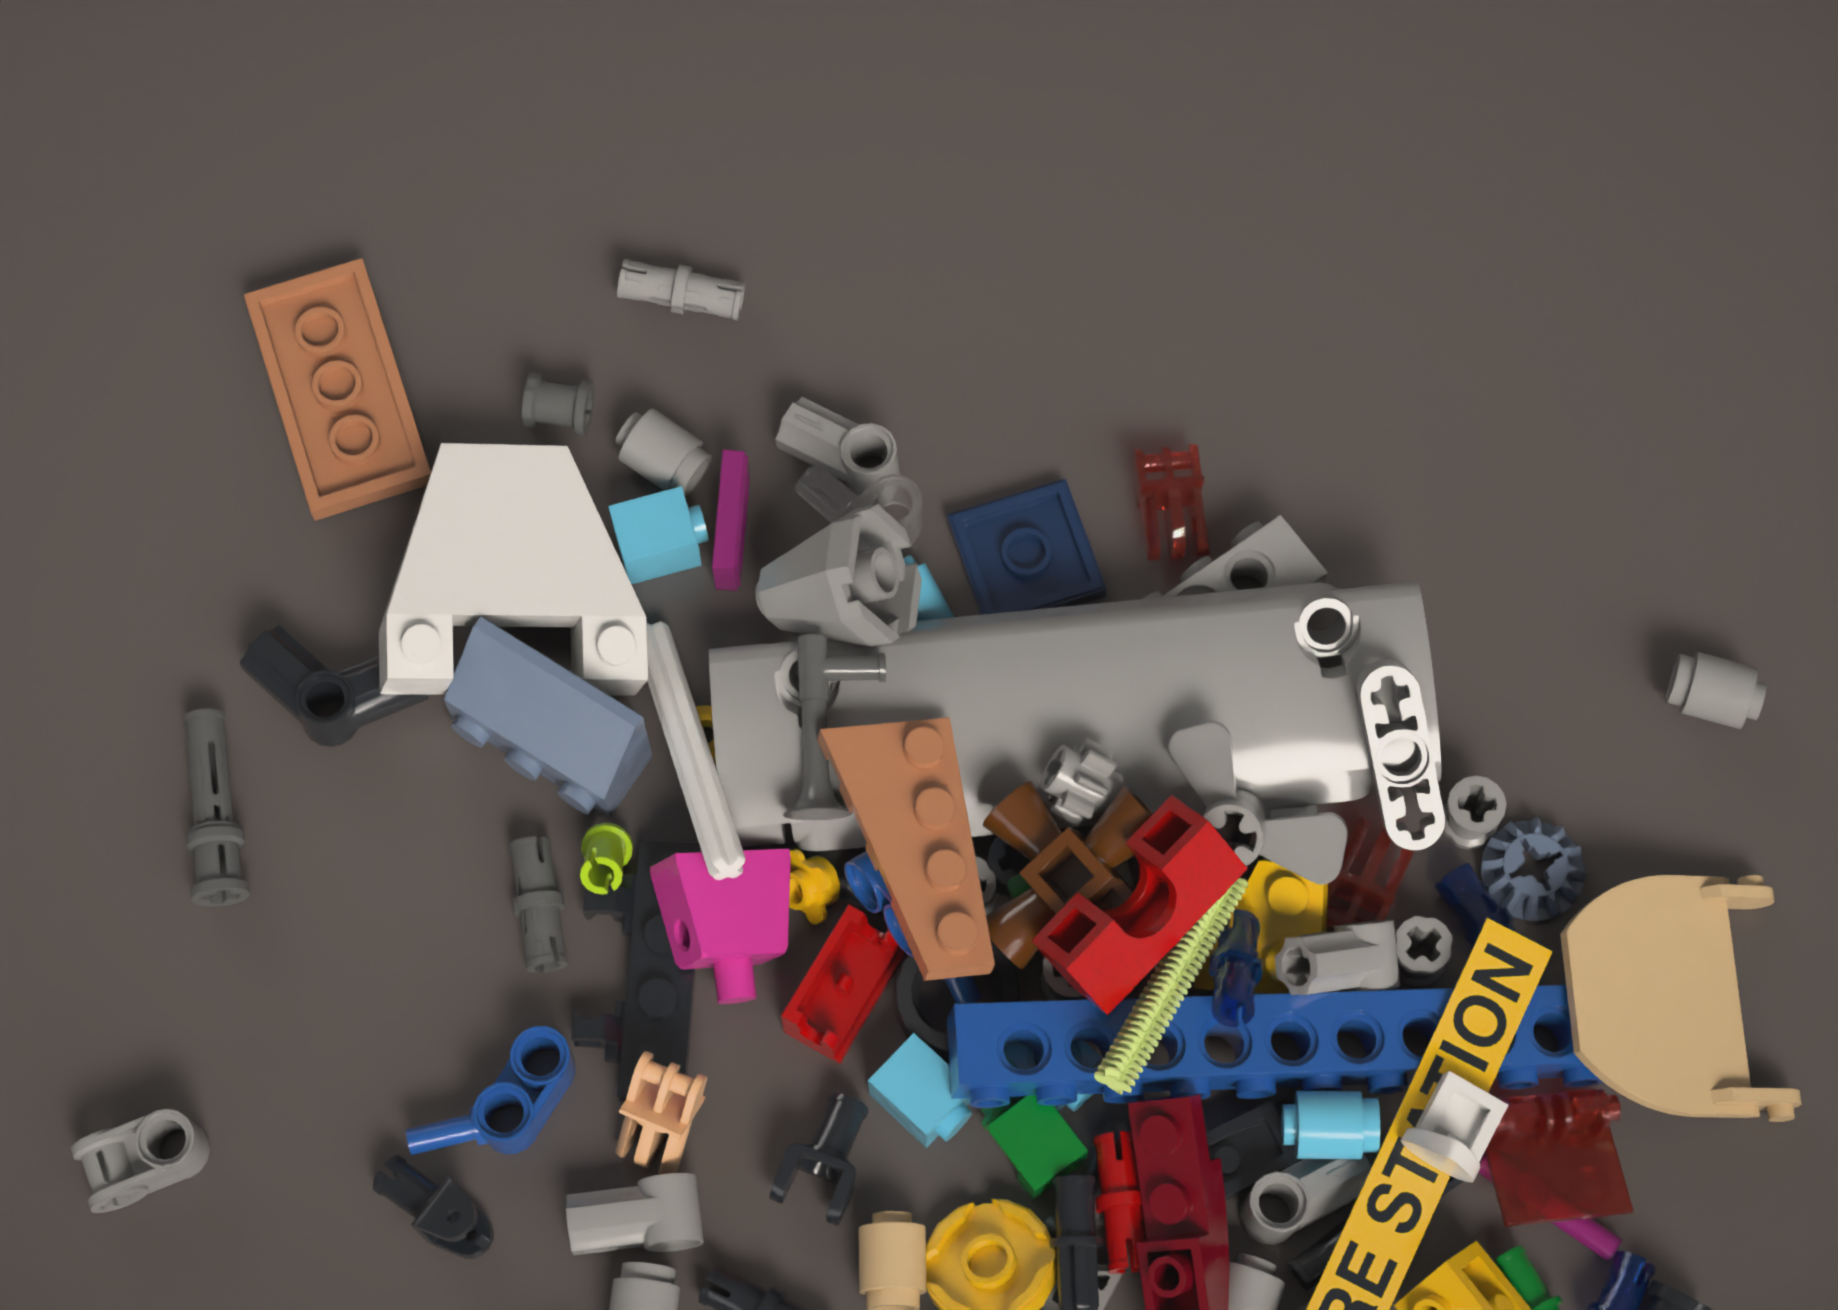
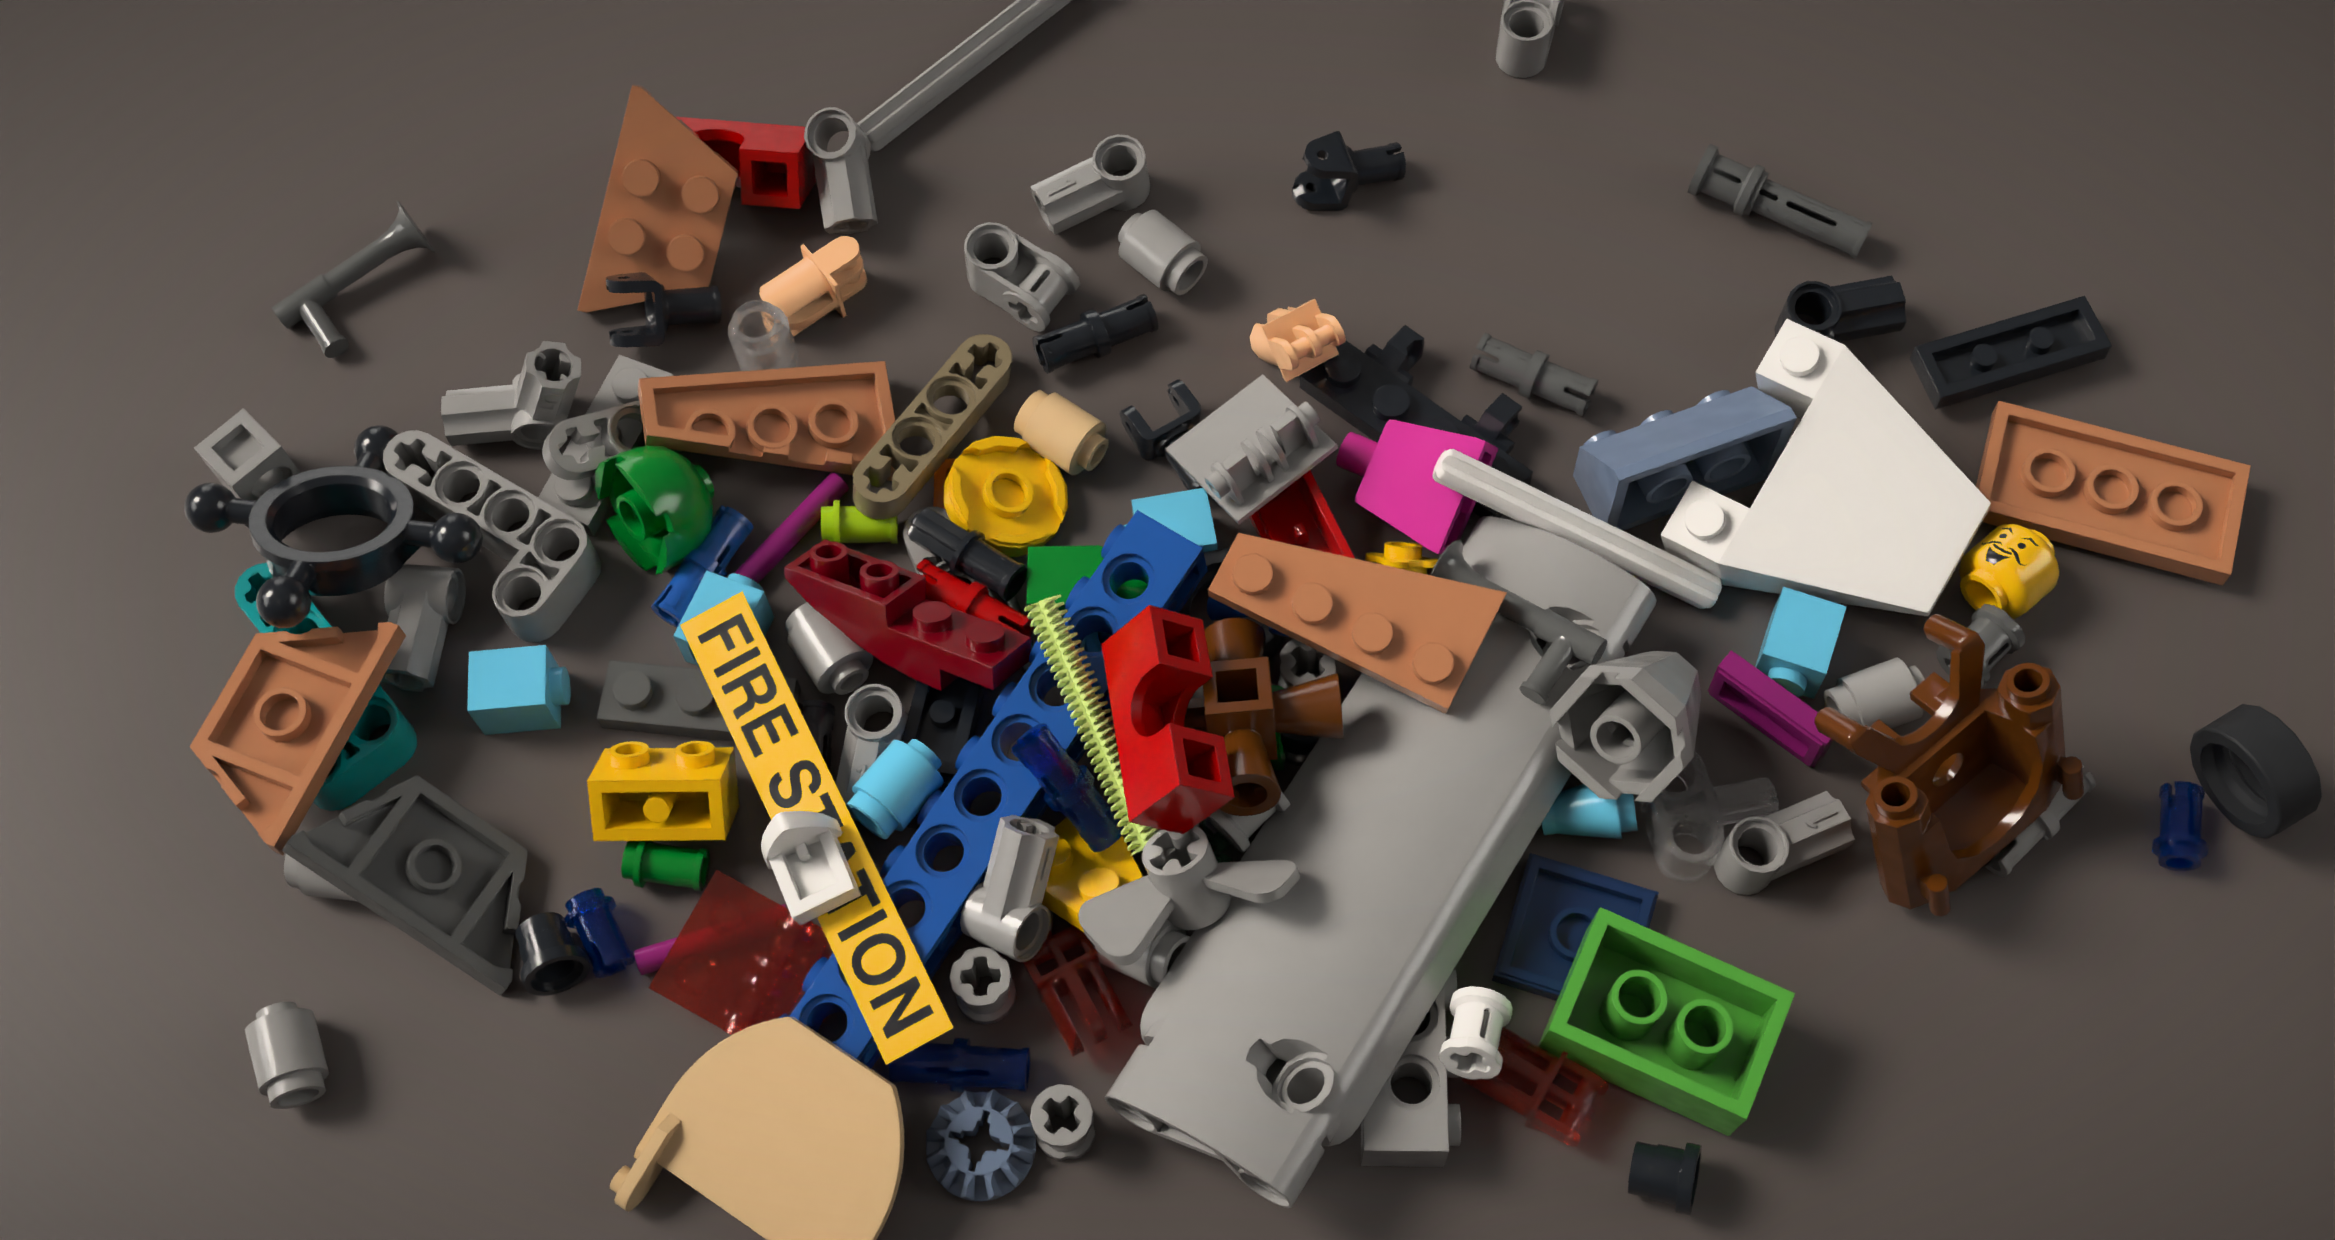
camera: 130 degrees right, 5 degrees down
(247, 534) = (2010, 352): none -> black plate
(476, 411) = (2009, 570): none -> yellow head
(514, 1086) = (1391, 272): blue beam -> none
(540, 150) = (2256, 771): none -> black tyre
(605, 852) = (1541, 441): lime pin -> none
(613, 188) = (2180, 827): none -> clear blue pin
(654, 1215) = (1230, 301): light grey piece -> none
(712, 339) = (1963, 778): none -> reddish brown piece
(807, 1063) = (1252, 448): none -> light grey hinge
(1061, 434) = (1667, 1022): none -> bright green brick
(1081, 781) = (1314, 773): light grey gear -> none
(1166, 374) = (1666, 1174): none -> black piece
(1181, 547) = (1476, 1033): none -> white bush
(1427, 797) = (1160, 1076): beam -> none

